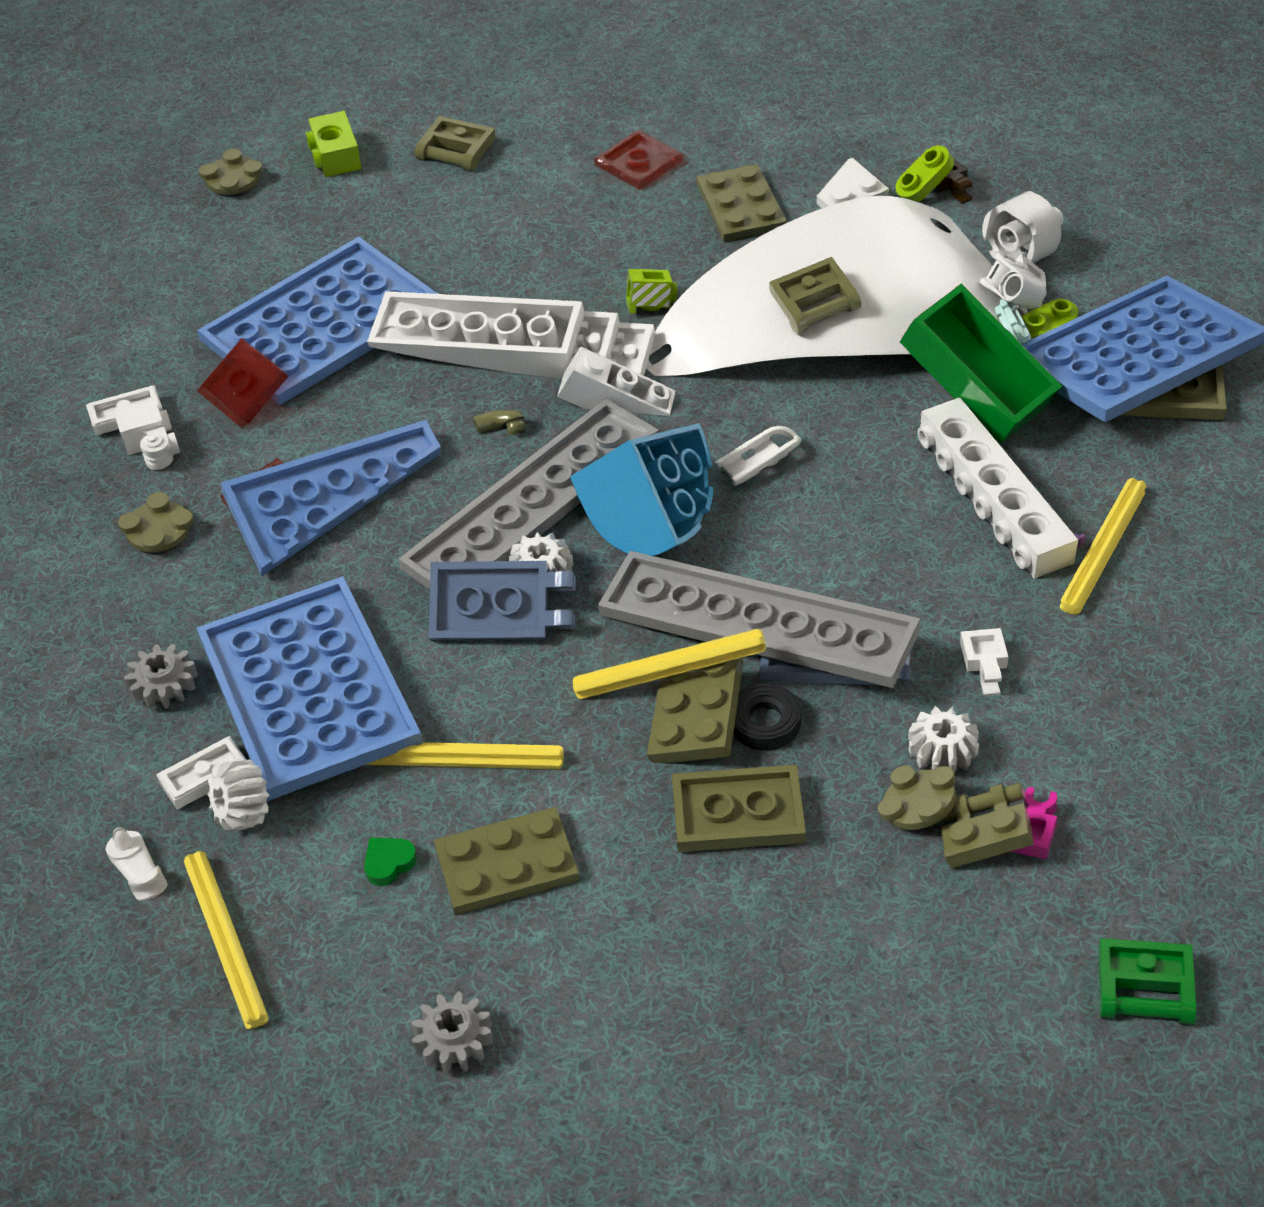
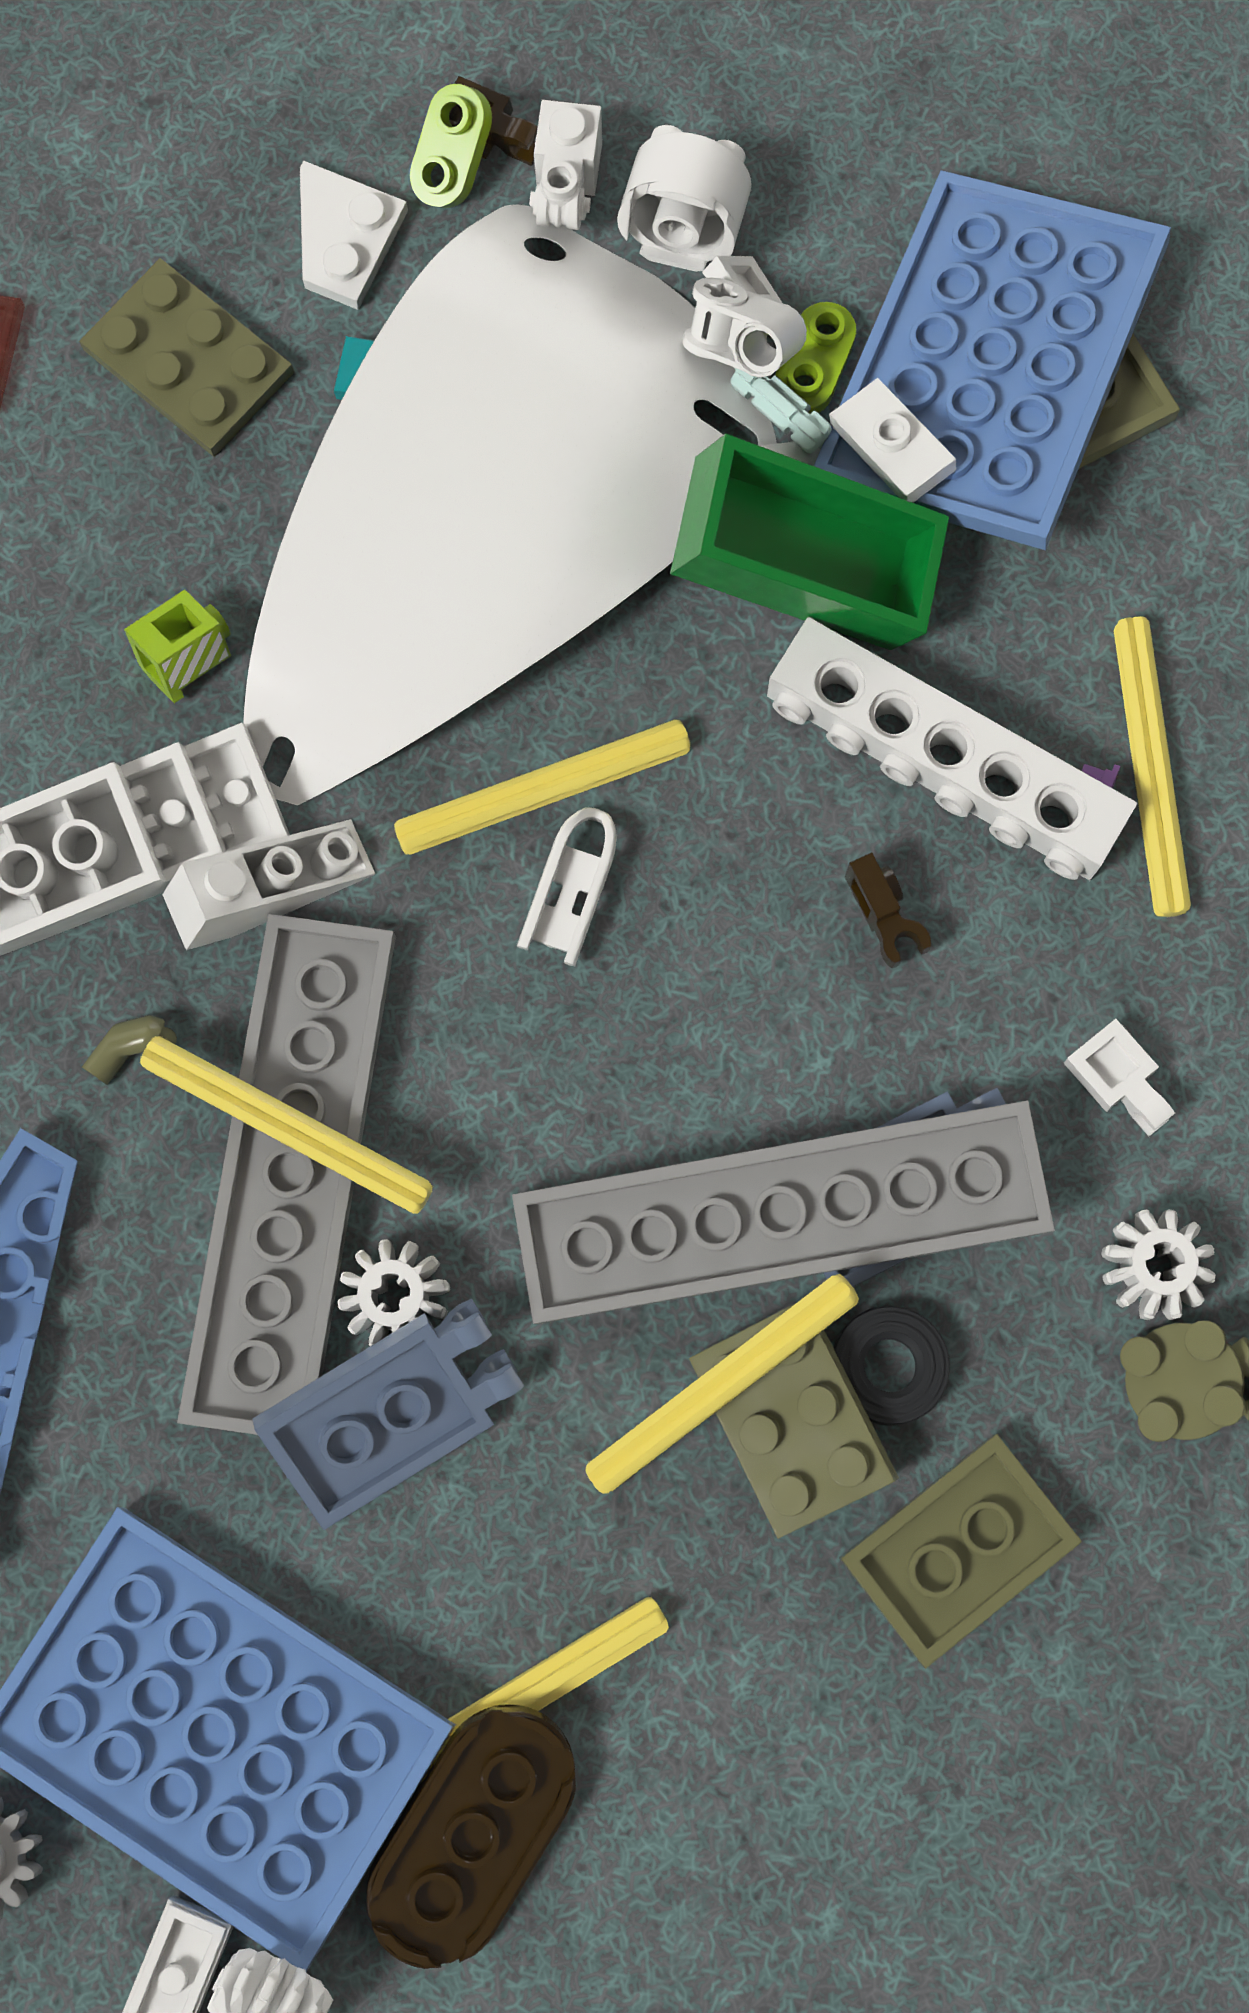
camera: 35 degrees left, 30 degrees up
(387, 858) = (543, 1940): green tile -> none
(391, 791) = (471, 1836): none -> dark brown tile
(506, 860) = (705, 1835): olive plate -> none
(547, 471) = (286, 1124): none -> light yellow axle
(649, 490) = (477, 1076): dark azure brick -> none
(778, 416) = (542, 787): none -> light yellow axle
(810, 286) = (466, 539): olive plate -> none
(912, 525) = (878, 898): none -> dark brown plate
(975, 198) = (566, 162): none -> white brick
(1056, 349) = (892, 441): none -> white plate

